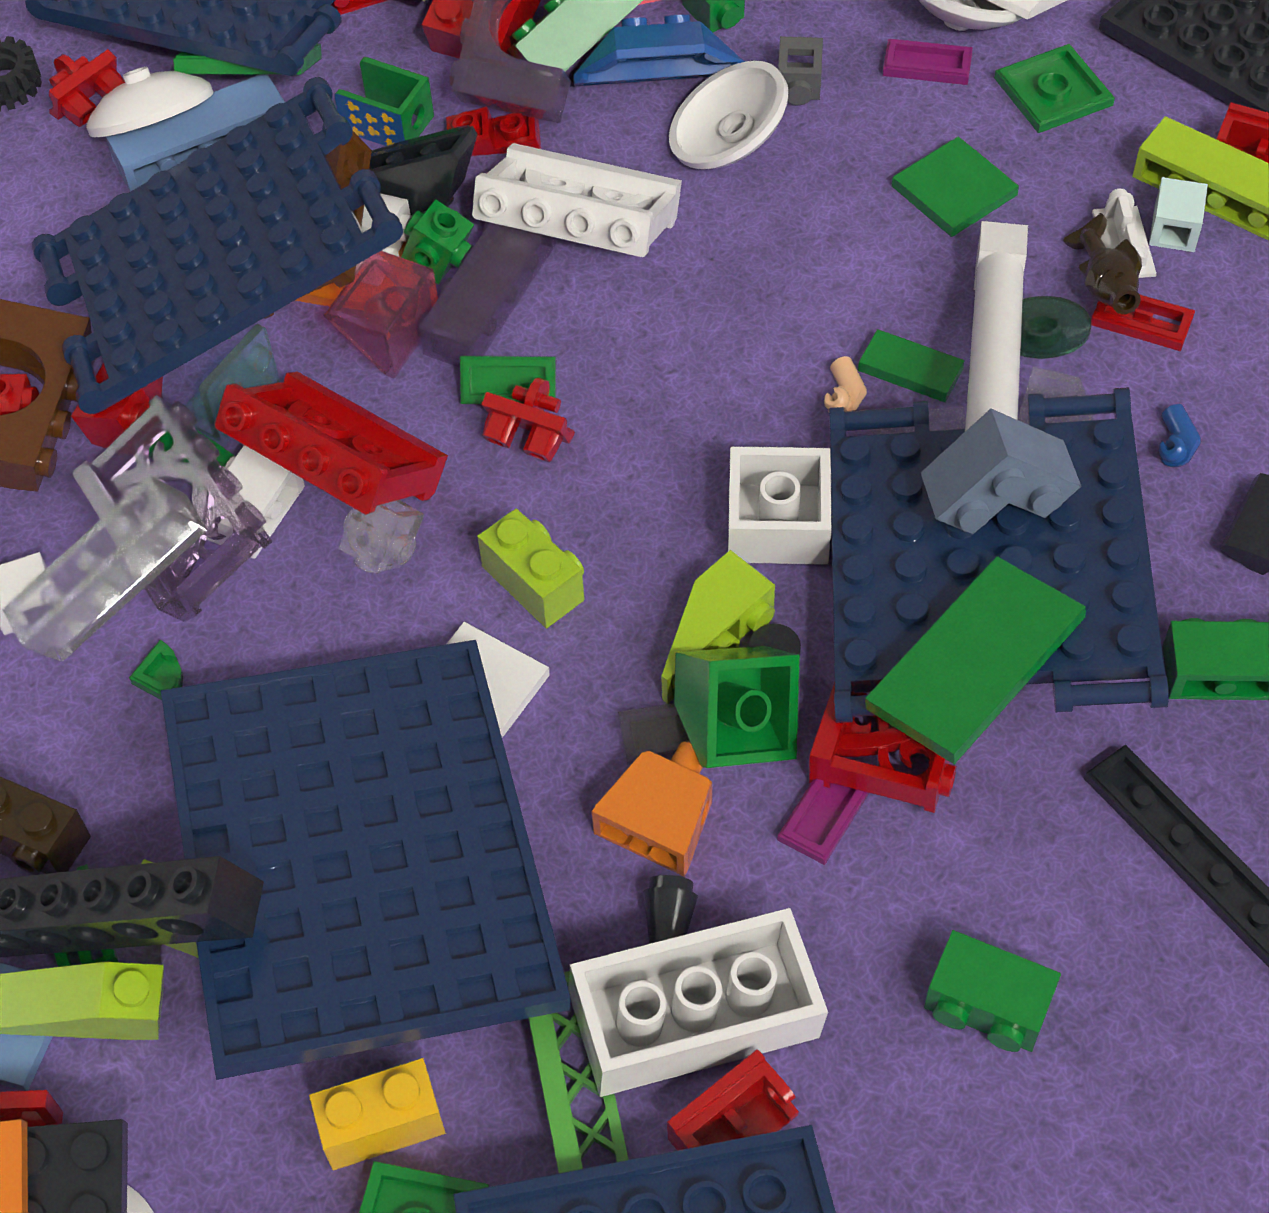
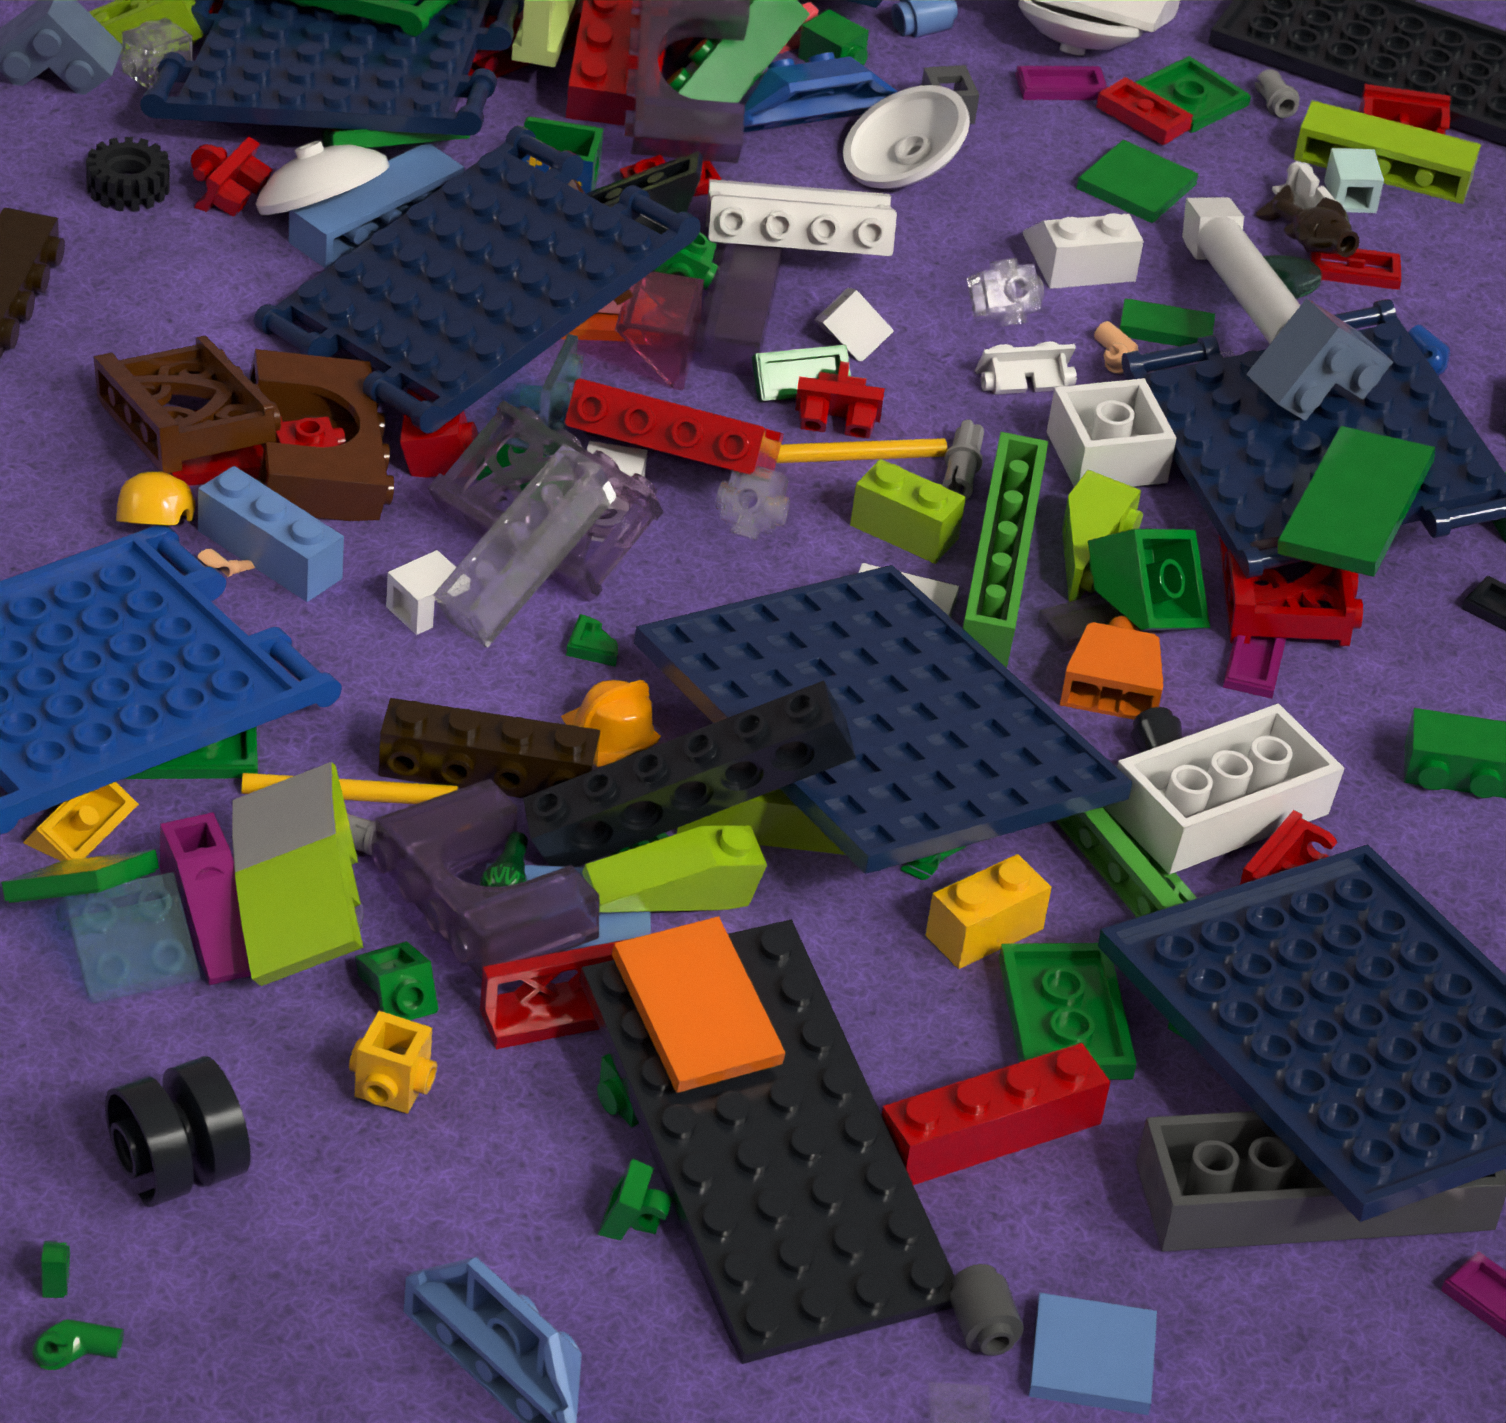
camera: 25 degrees left, 15 degrees down
(128, 783) = (622, 715): none -> light orange piece
(530, 477) = (862, 450): none -> yellow bar
(587, 327) = (854, 324): none -> white panel
(598, 640) = (1005, 543): none -> bright green brick
(624, 507) = (964, 458): none -> light grey axle
(733, 307) = (1006, 292): none -> clear brick
(756, 401) = (1006, 368): none -> white hinge
(860, 268) = (1086, 250): none -> white slope
(994, 104) = (1144, 111): none -> red plate
(1143, 103) = (1279, 97): none -> light grey pin

